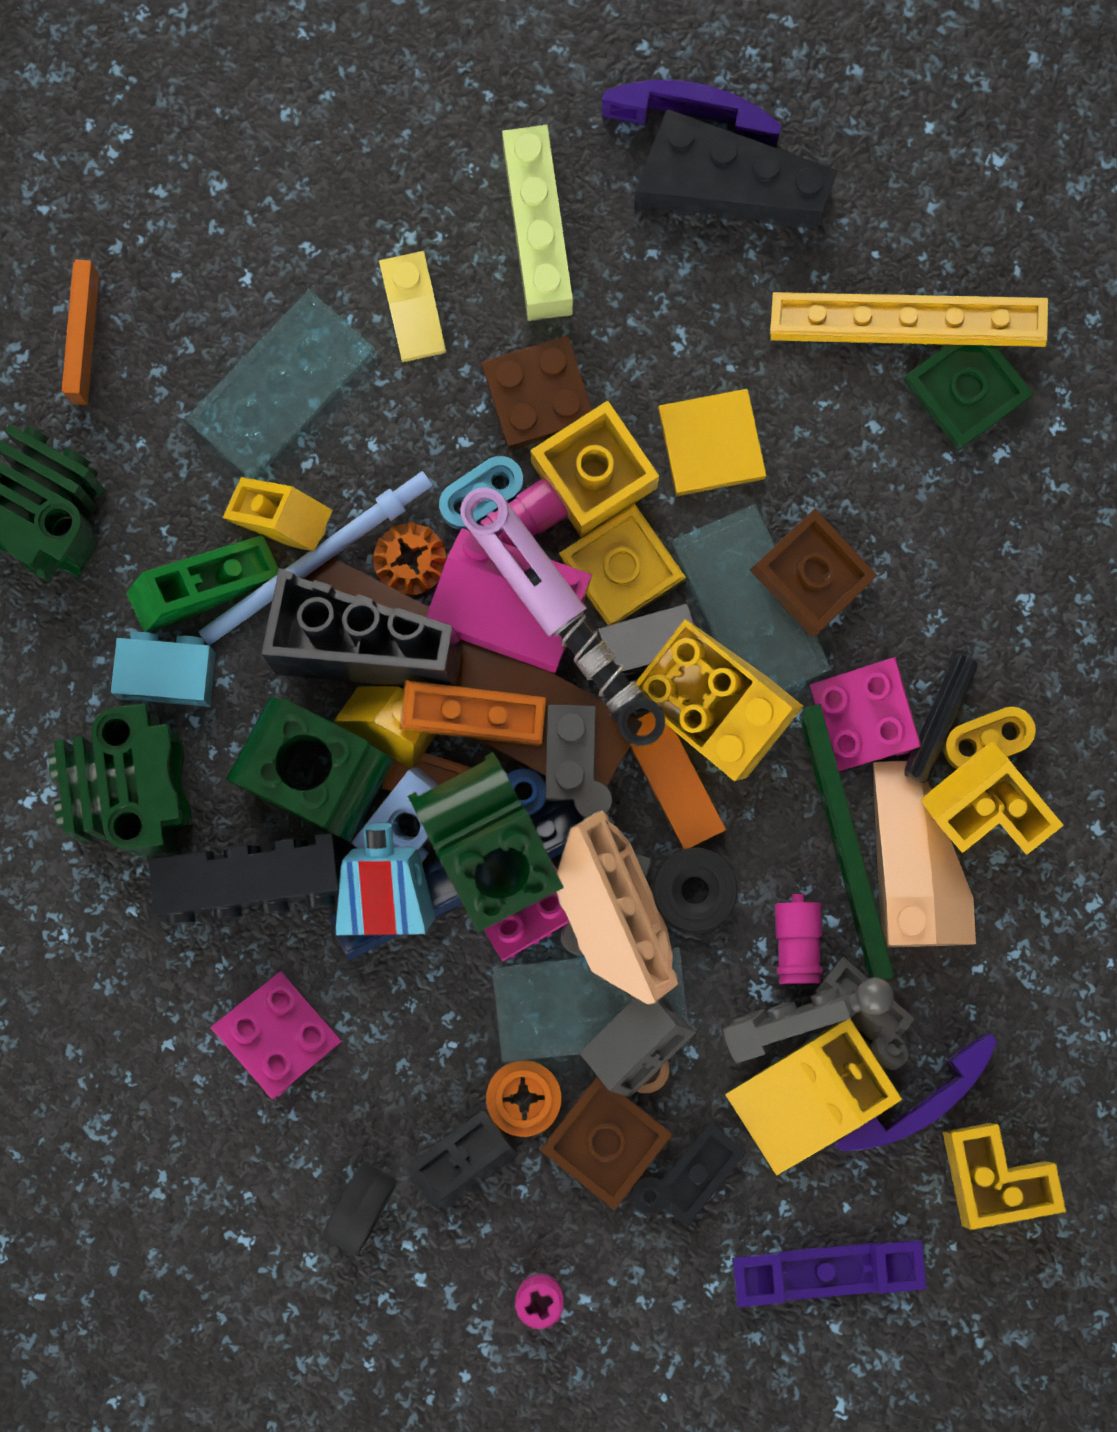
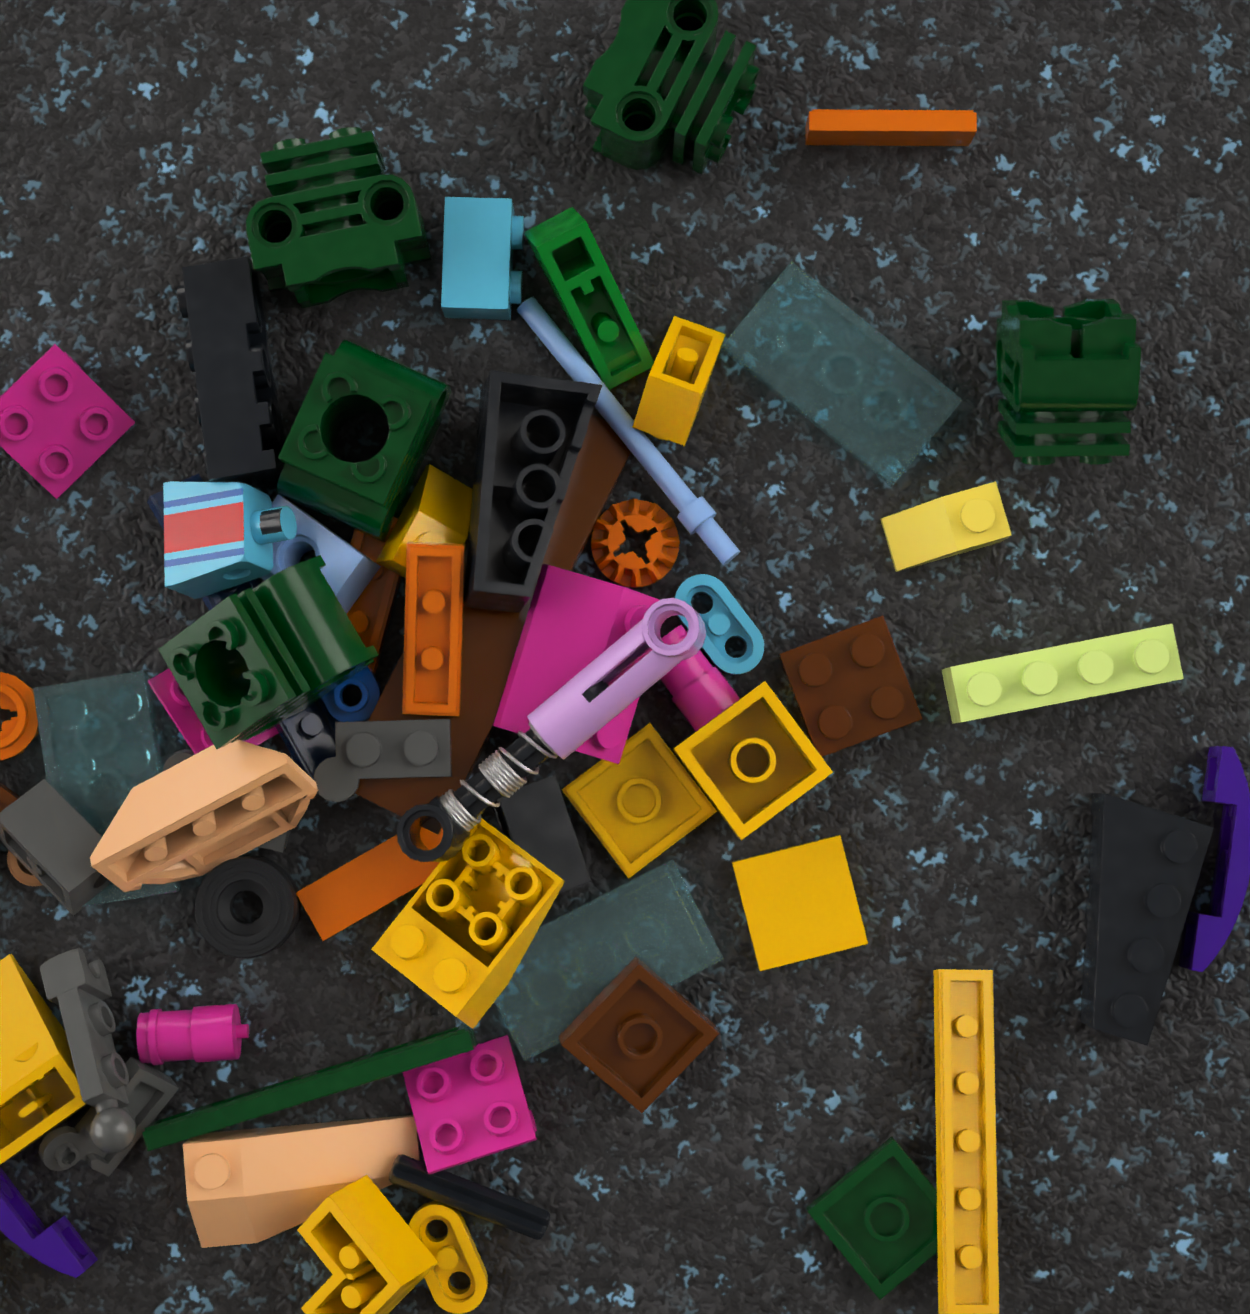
camera: 90 degrees right, 5 degrees up
(299, 199) = (1066, 380): none -> dark green piece

